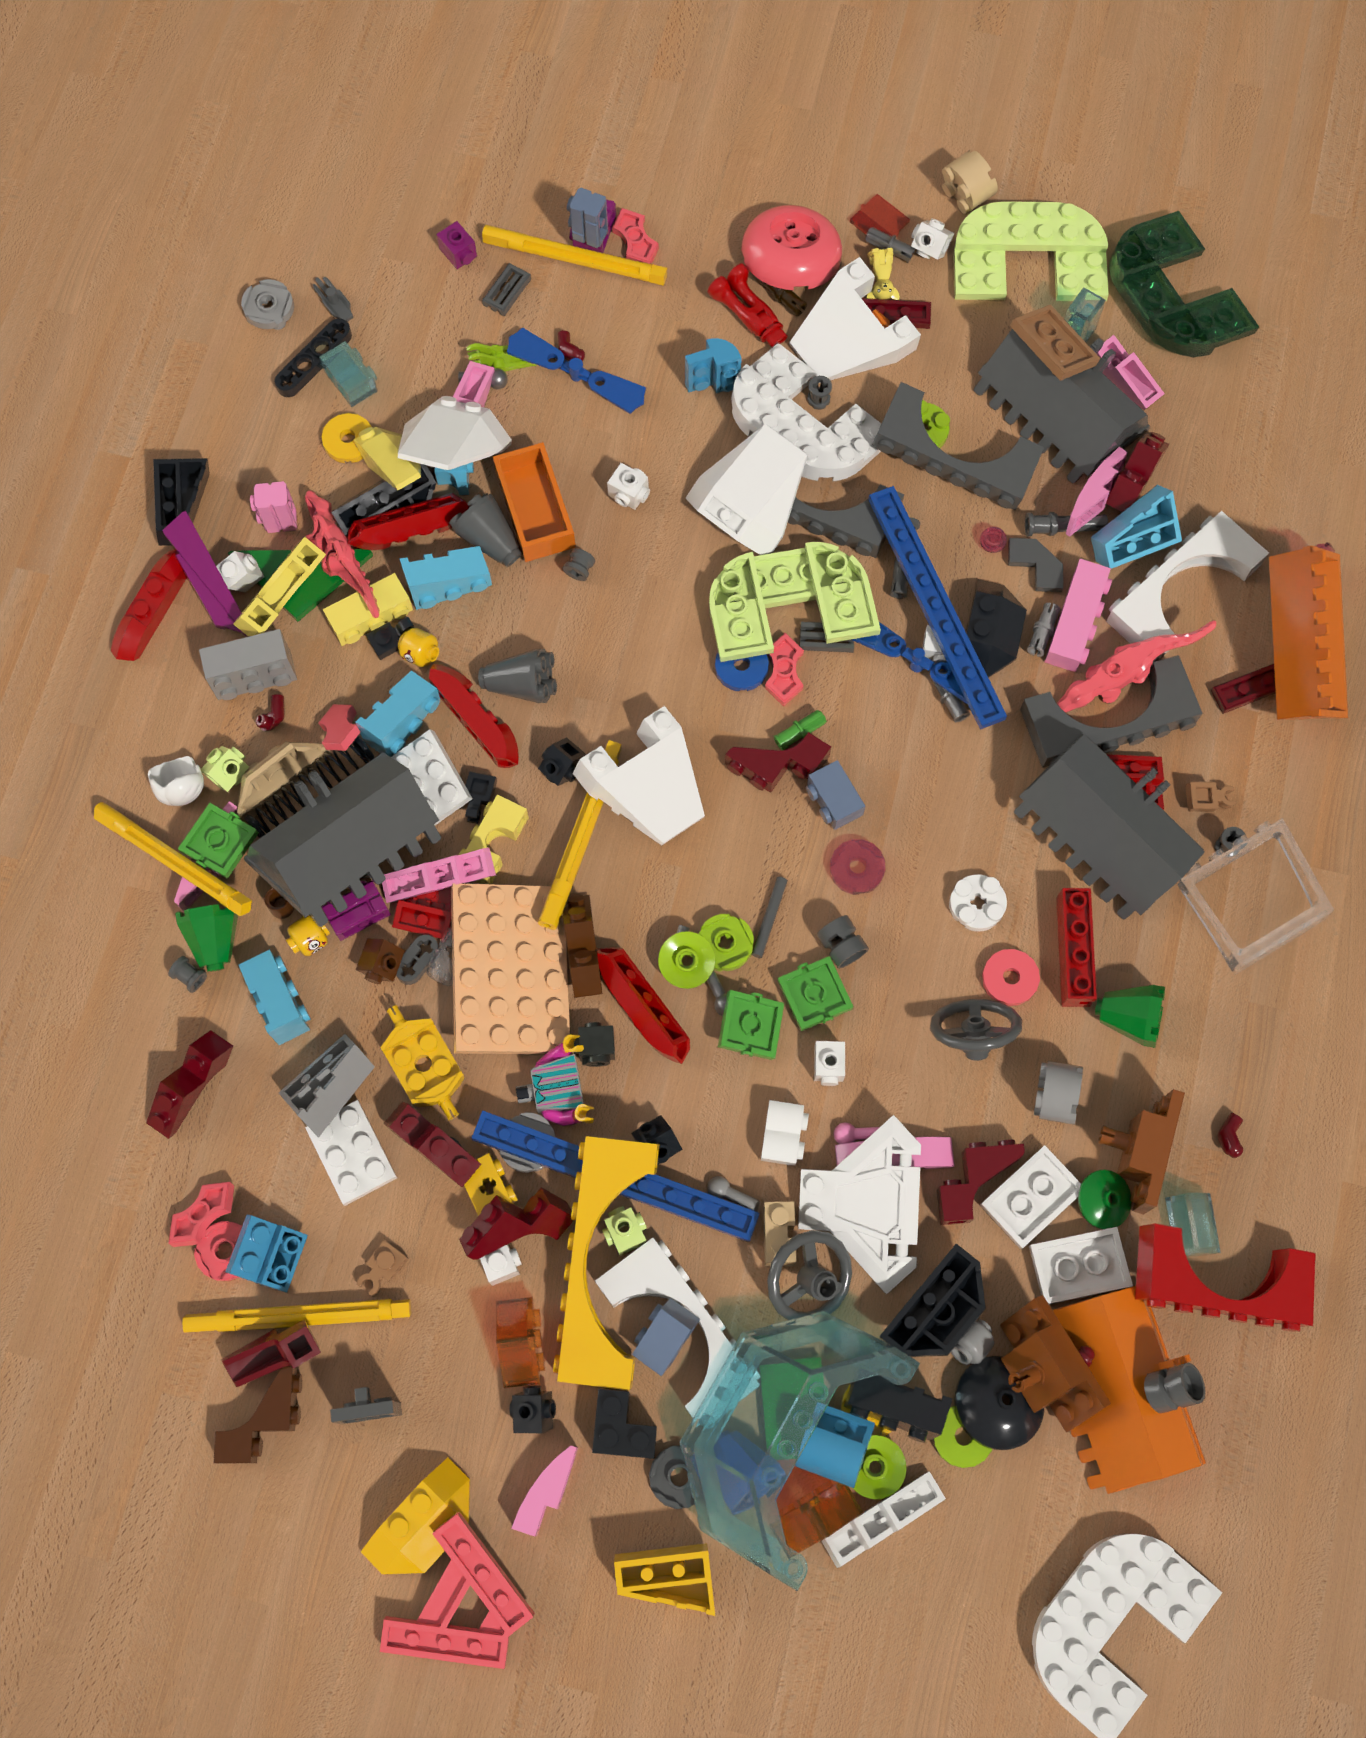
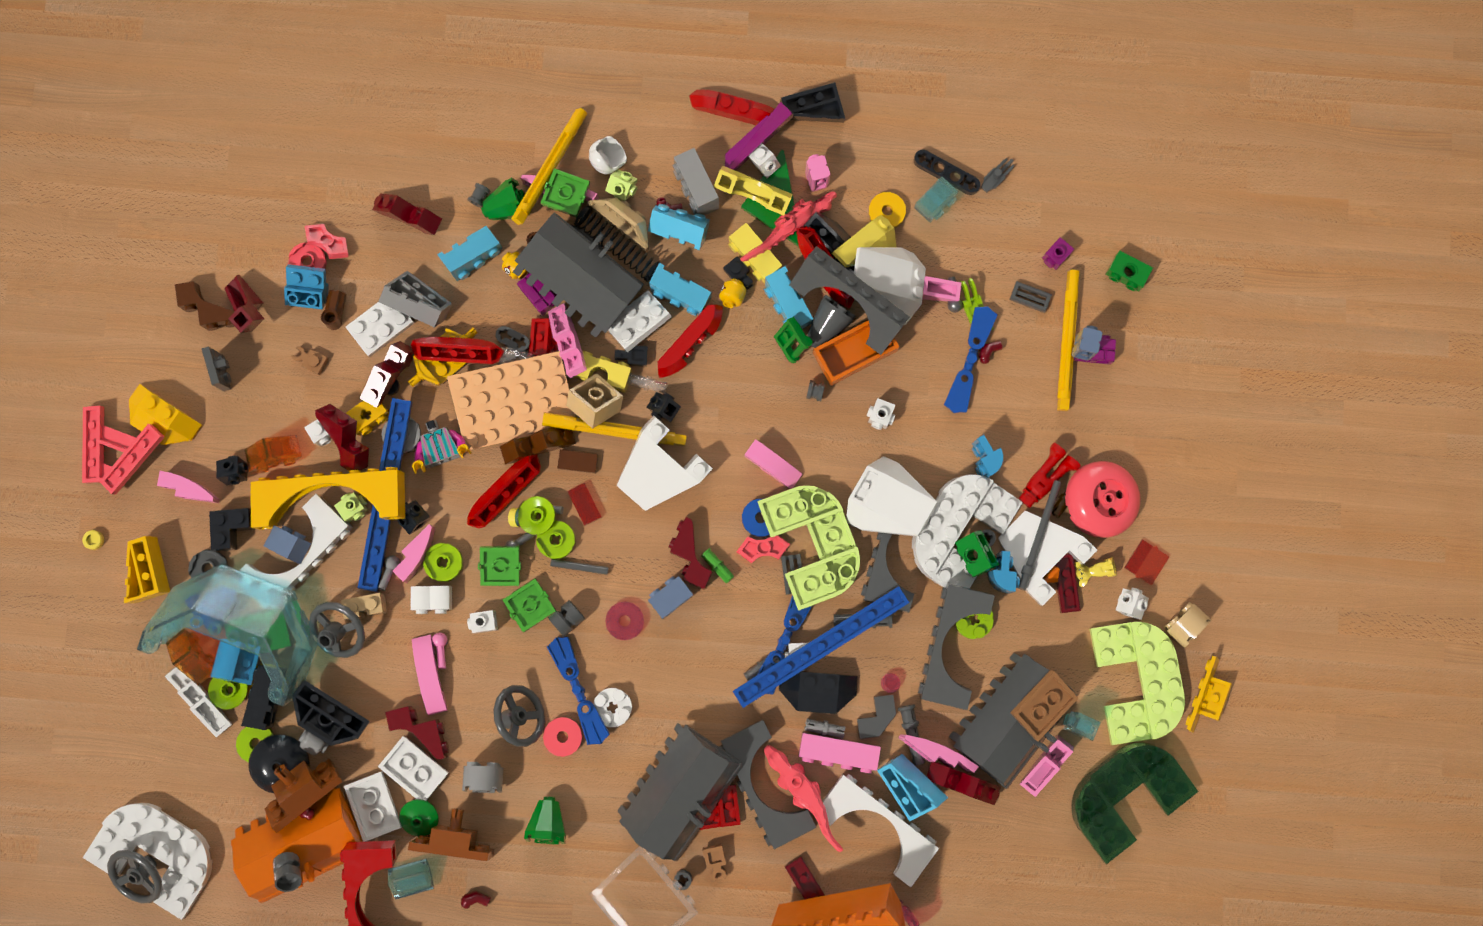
camera: 80 degrees right, 10 degrees up
(274, 316) = (975, 138): light grey plate -> none
(290, 1315) = (273, 315): yellow piece -> none
(305, 697) = (679, 225): none -> medium azure wedge
(310, 1216) = (334, 307): none -> reddish brown piece
(339, 727) = (661, 253): coral tile -> none
(380, 960) = (505, 315): reddish brown brick -> none
(418, 1032) = (456, 350): none -> red brick
(421, 500) = (824, 271): none -> dark grey arch
(495, 580) = (788, 335): none -> green plate
(499, 170) = (1139, 270): none -> green brick
(521, 676) = (721, 368): dark grey cone -> none
(524, 778) = (647, 383): none -> clear pin
(535, 848) = (594, 400): none -> tan brick
(597, 1043) = (471, 466): pearl dark grey brick -> none
(600, 1665) = (93, 540): none -> light yellow tile
(616, 896) = (577, 461): none -> reddish brown tile
(630, 228) = (1085, 387): coral tile -> none
(670, 635) = (773, 464): none -> bright pink slope
(680, 896) = (584, 504): none -> clear red tile
(683, 993) = (513, 517): none -> light yellow tile
(713, 1147) = (415, 554): none -> bright pink slope
(739, 1094) = (432, 559): none -> lime plate
(824, 398) = (986, 558): none -> green brick
(869, 1203) = (392, 661): white plate -> none
(870, 342) = (1028, 570): none -> dark grey bar
(870, 375) = (1001, 578): none -> dark azure brick
(885, 241) = (1124, 572): flat silver axle -> none
(997, 929) = (591, 722): none -> blue piece
(1062, 175) = (1211, 696): none -> yellow bracket
(1076, 947) = (587, 778): red brick -> none
(1148, 1652) = (138, 874): none -> dark grey piece

